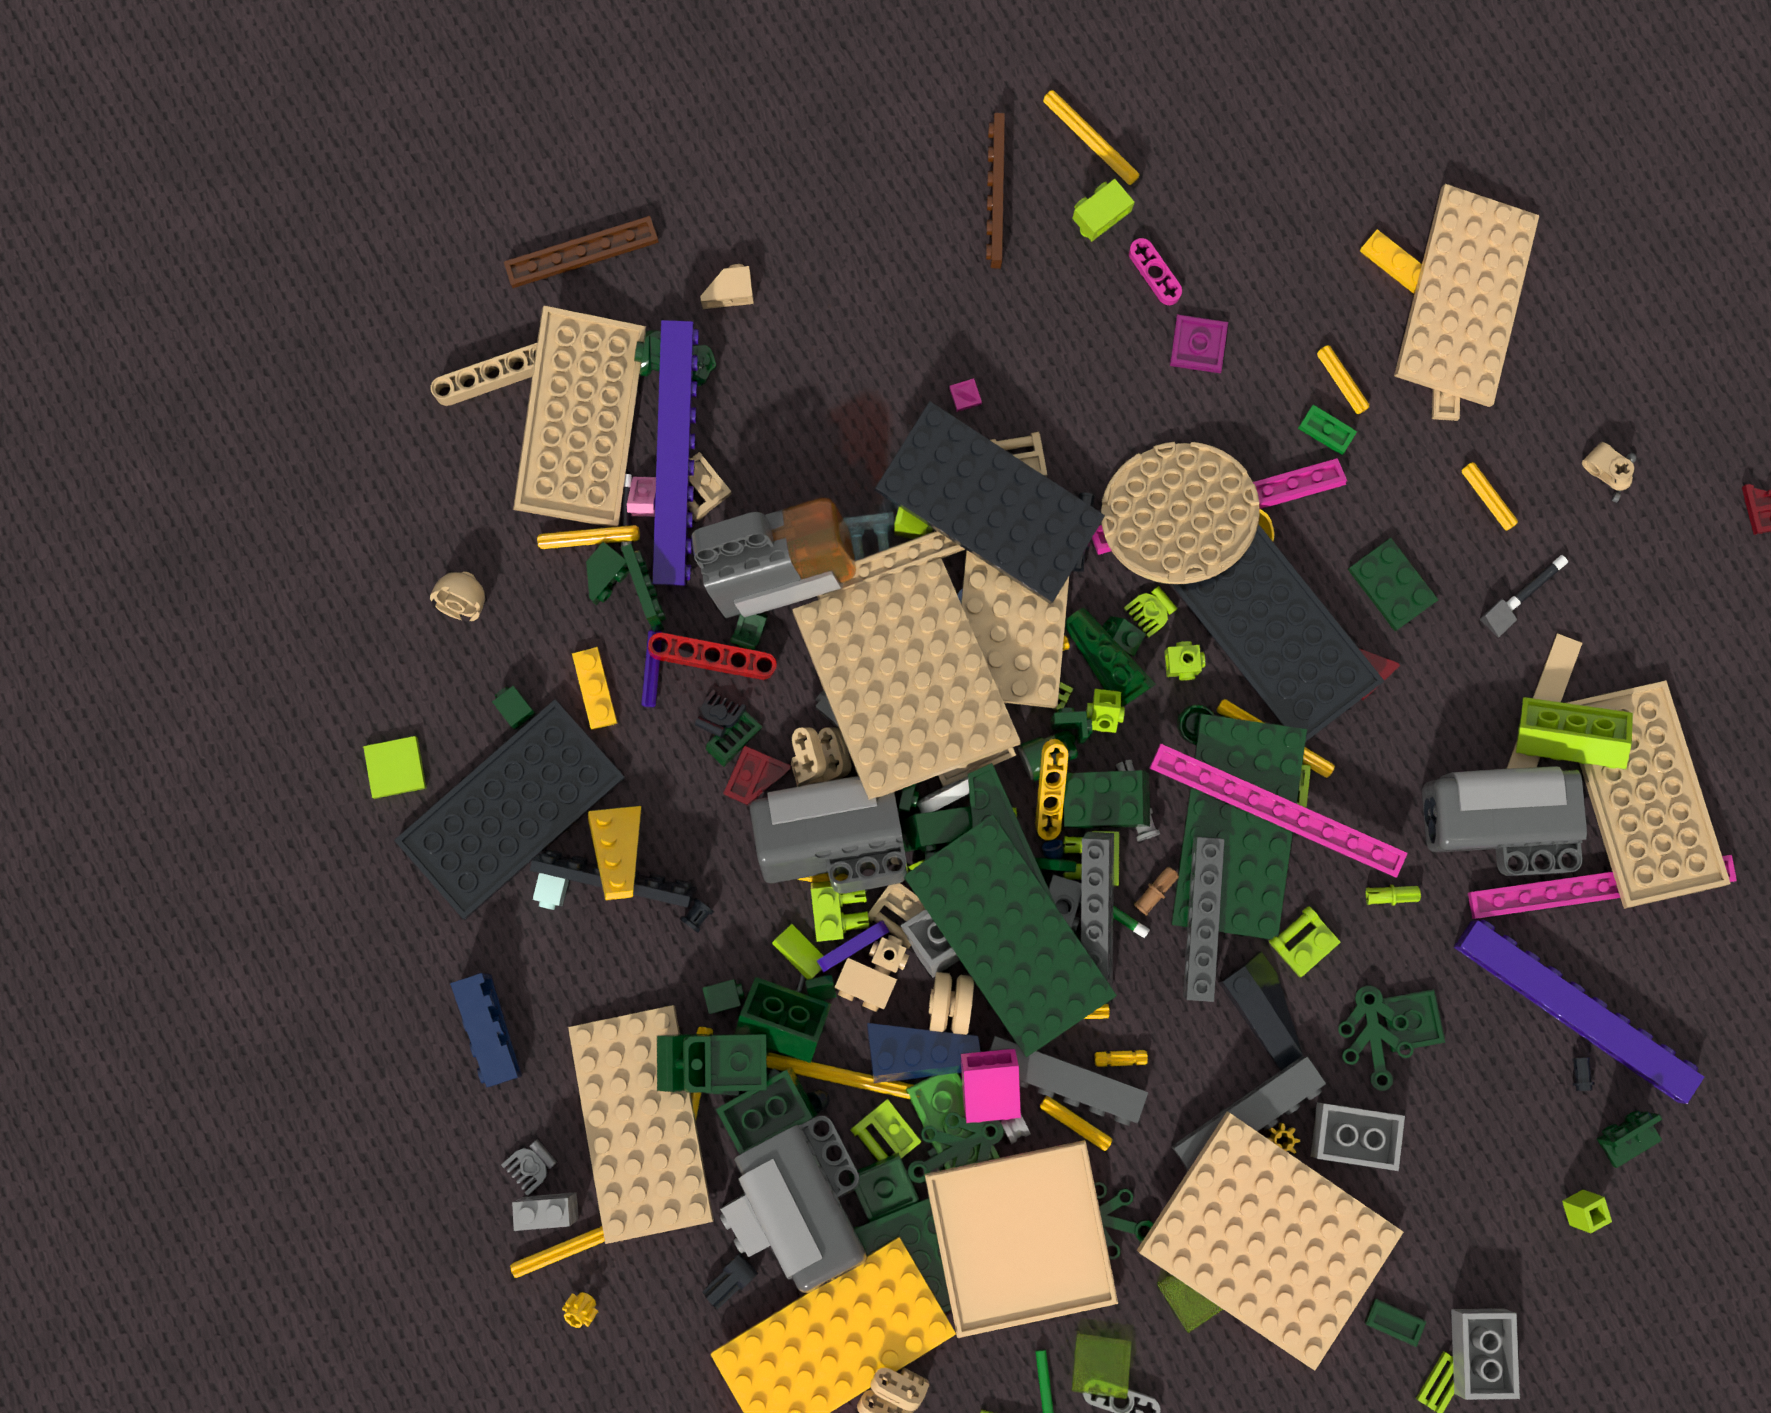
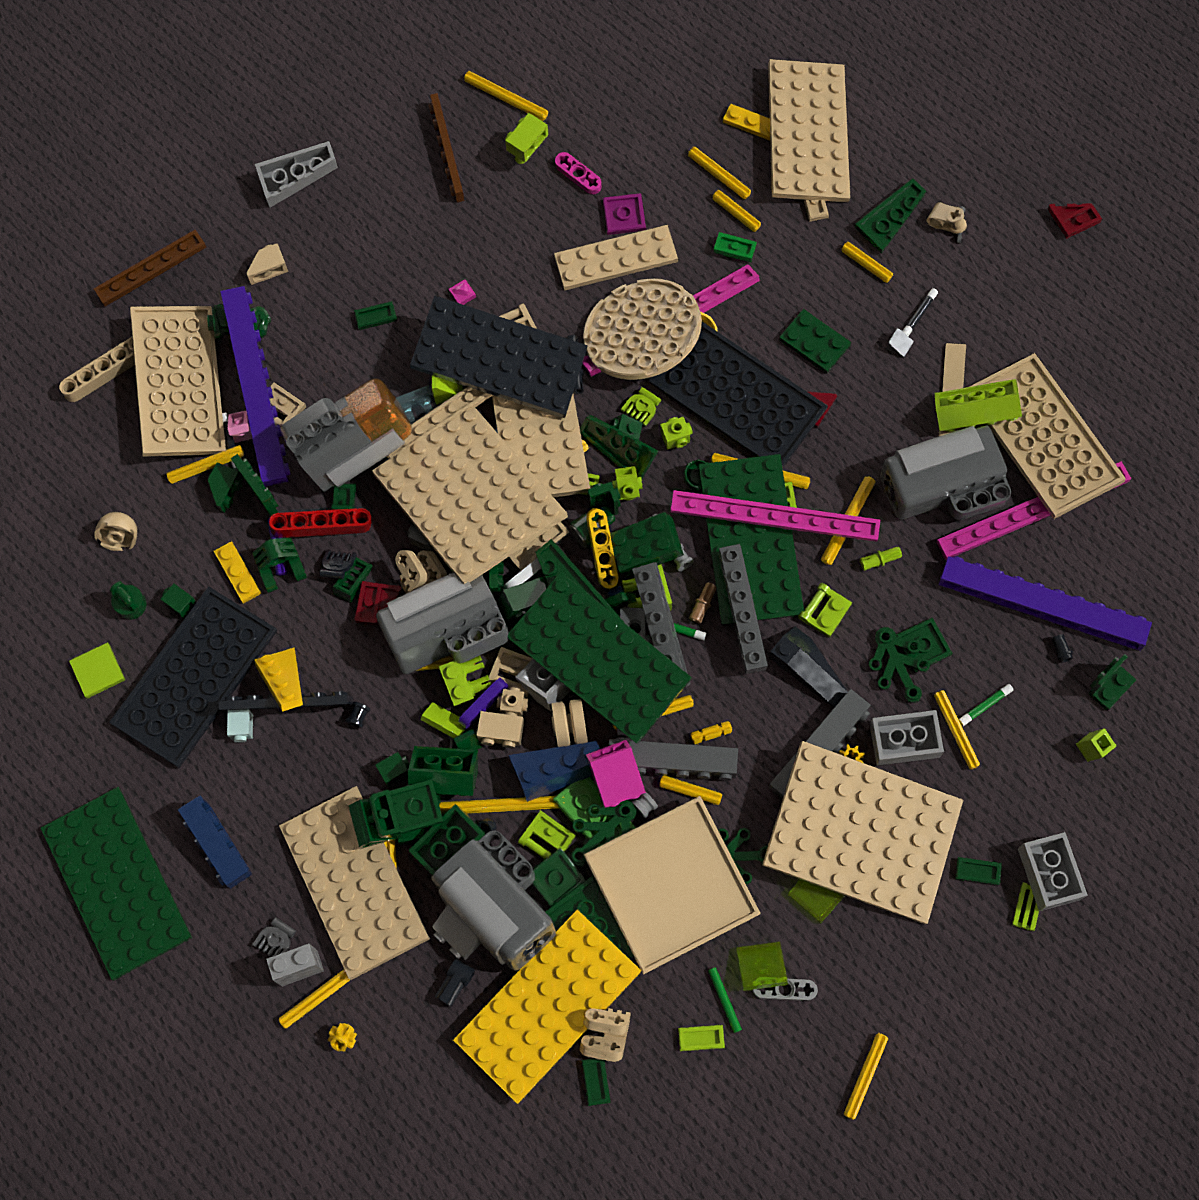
camera: 10 degrees left, 10 degrees down
(356, 1041) = (116, 883): none -> dark green plate
(452, 691) = (127, 600): none -> dark green piece
(648, 683) = (276, 552): none -> dark green piece
(794, 171) = (294, 171): none -> light grey wedge
(848, 395) = (375, 315): none -> dark green tile
(1172, 400) = (616, 257): none -> tan plate
(1336, 321) = (720, 173): none -> yellow axle
(1370, 828) = (853, 510): none -> yellow axle
(1421, 1140) = (956, 729): none -> yellow axle
(1466, 1118) = (985, 704): none -> green bar
(1533, 444) = (888, 217): none -> dark green wing

